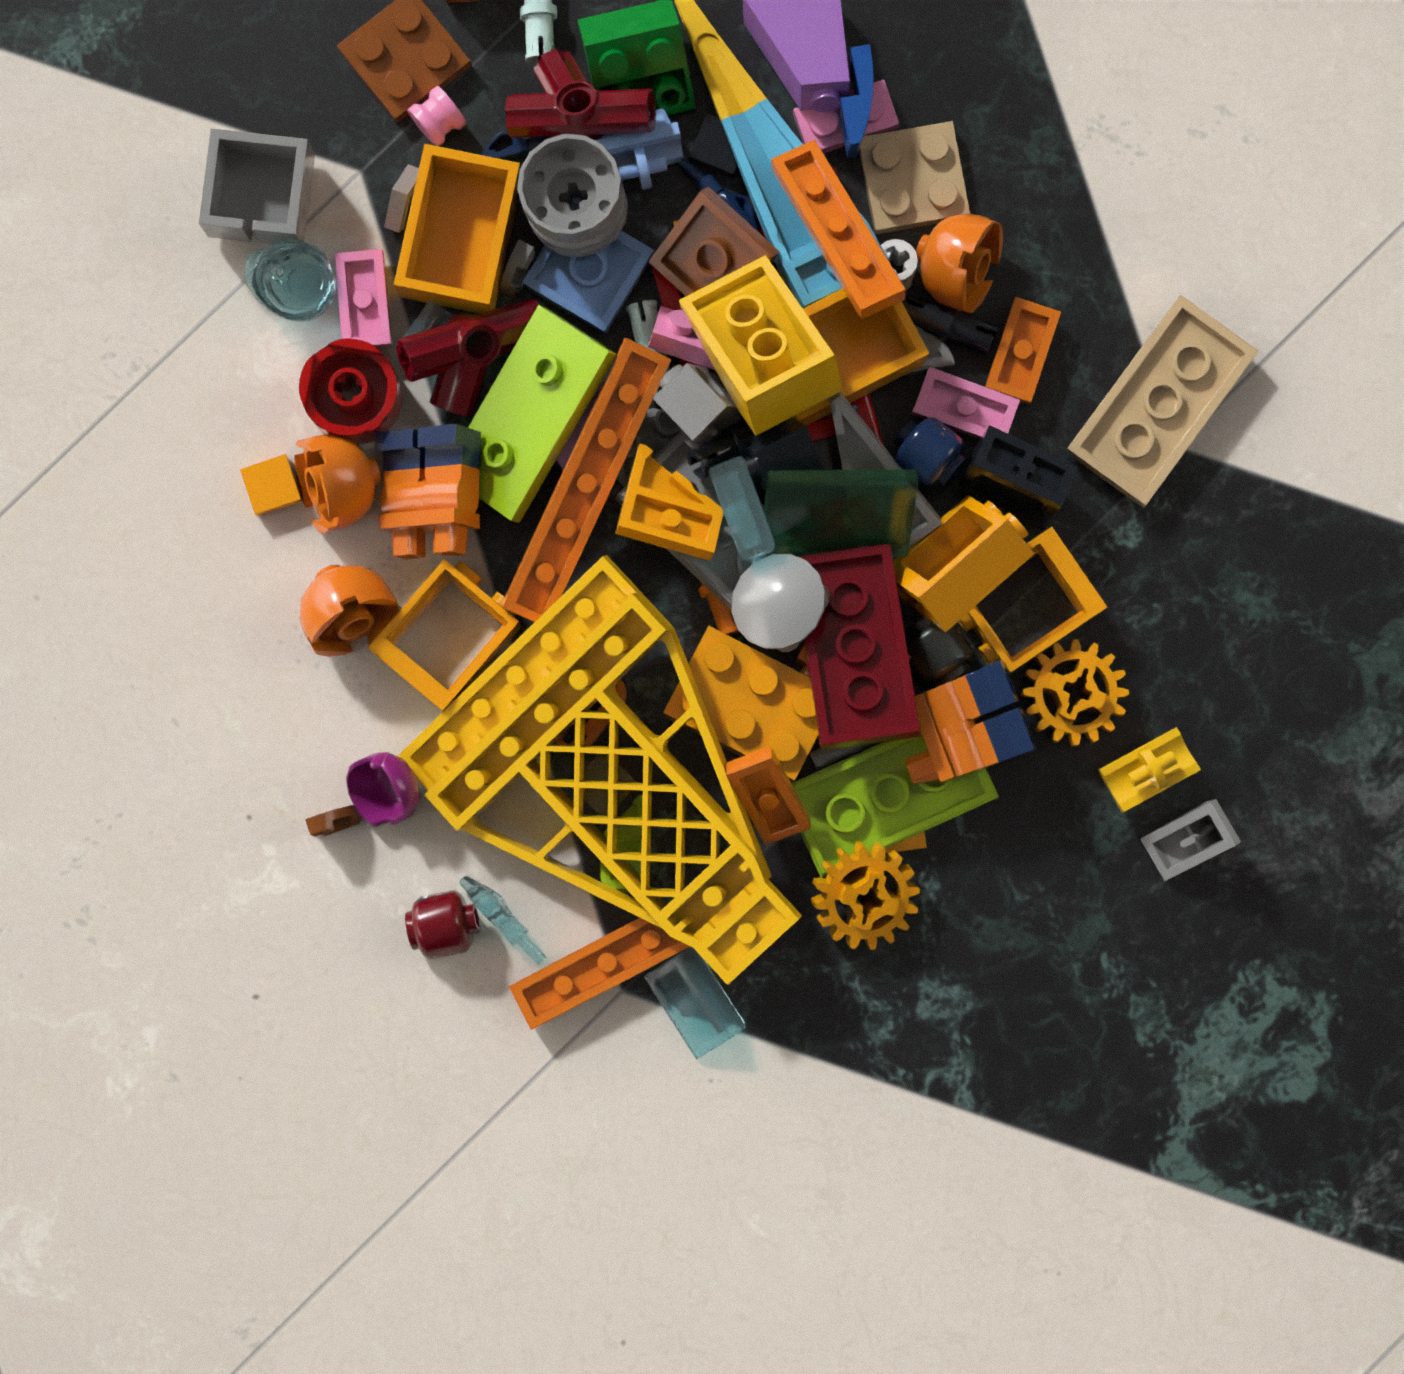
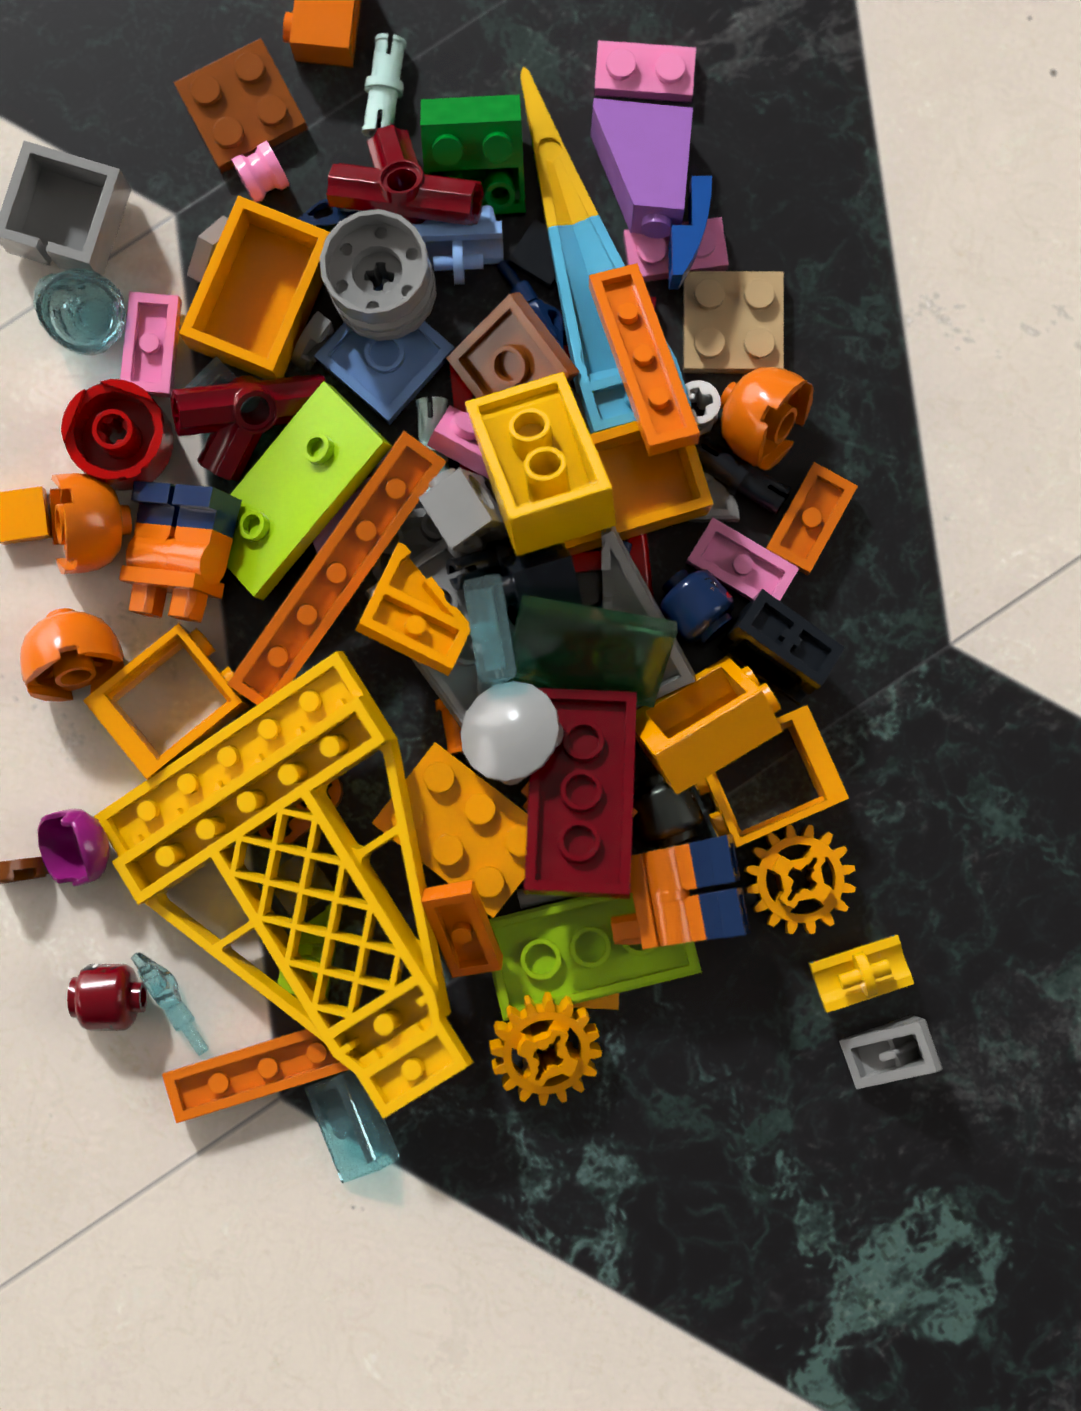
camera: 10 degrees right, 0 degrees up
(1161, 401) = (944, 596): tan plate -> none

